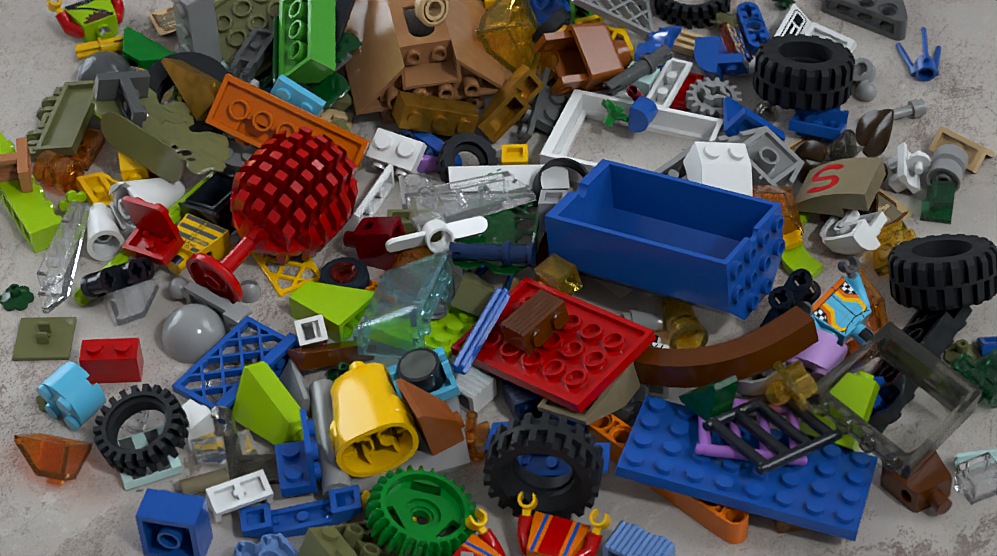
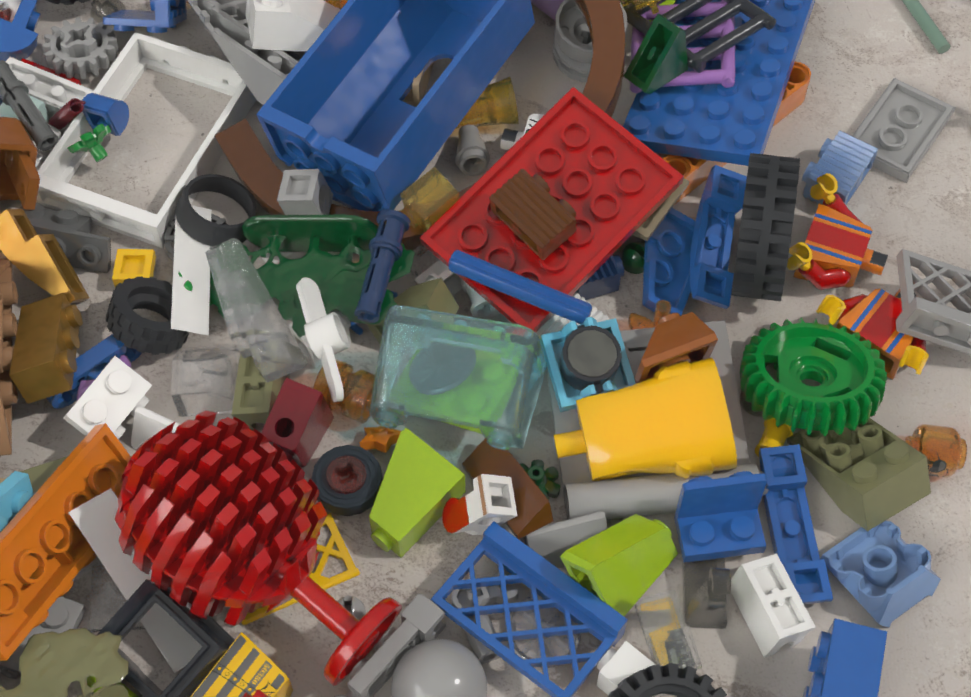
camera: 90 degrees left, 15 degrees up
(201, 482) = (732, 658): dark tan axle -> none

